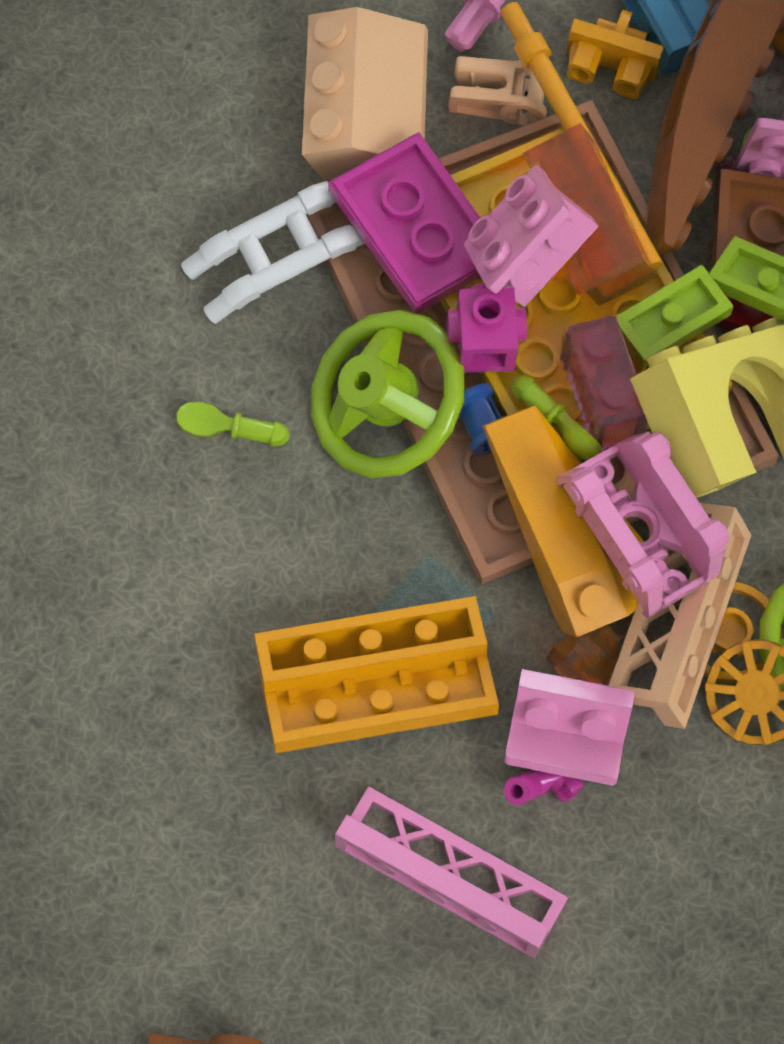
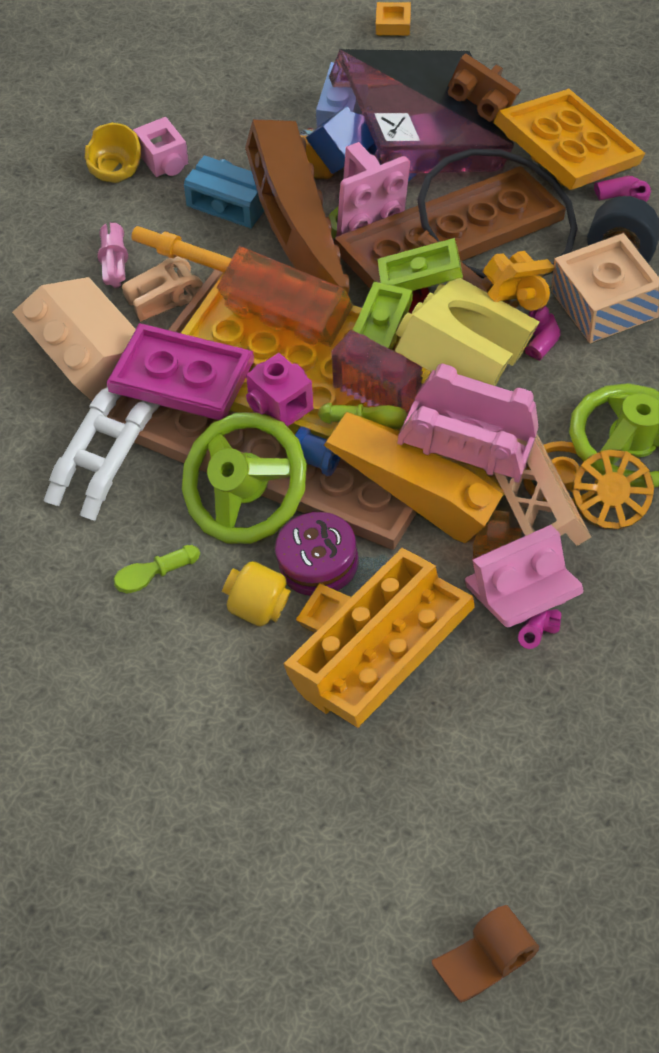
camera: 30 degrees left, 15 degrees down
(299, 532) = (256, 593): none -> yellow head
(349, 597) = (321, 607): none -> light orange plate
(395, 533) = (316, 551): none -> magenta head
(439, 883) = (530, 728): bright pink fence -> none
(527, 236) = (261, 318): bright pink bracket -> none
(616, 48) = (216, 226): light orange hips -> none

